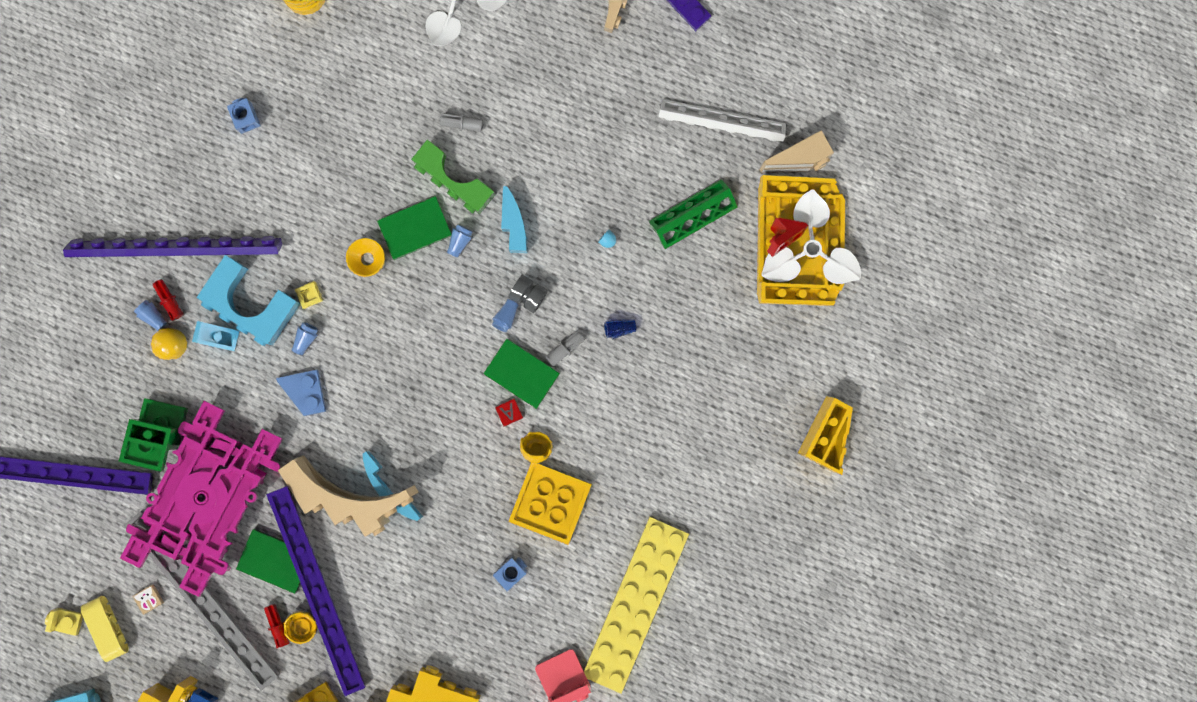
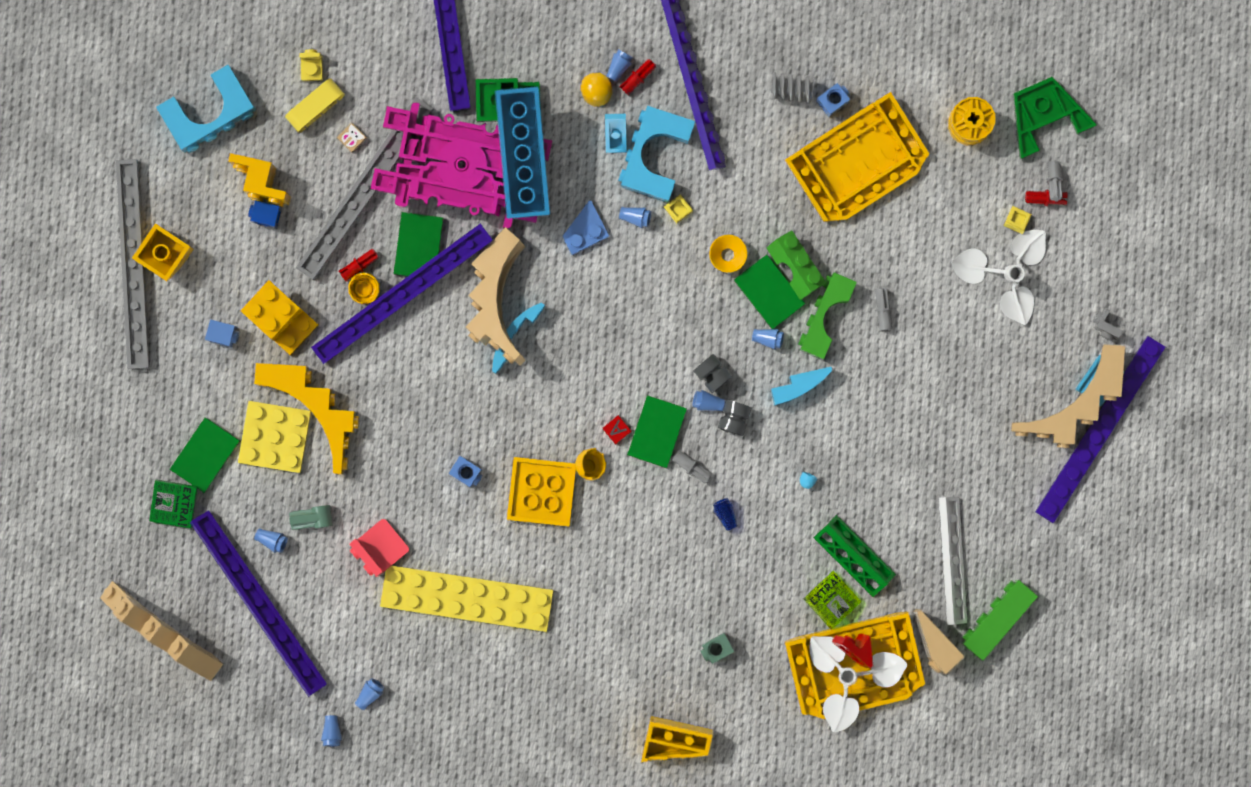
camera: 75 degrees right, 0 degrees up
(202, 433) = (522, 152): none -> dark azure brick
(220, 151) = (792, 87): none -> light grey piece
(305, 96) = (859, 160): none -> yellow slope
(407, 186) = (805, 274): none -> bright green arch
(478, 304) = (712, 373): none -> dark grey wheel
(730, 246) = (832, 600): none -> clear neon green tile
(753, 362) = (726, 648): none -> sand green brick
(791, 91) = (999, 619): none -> bright green brick

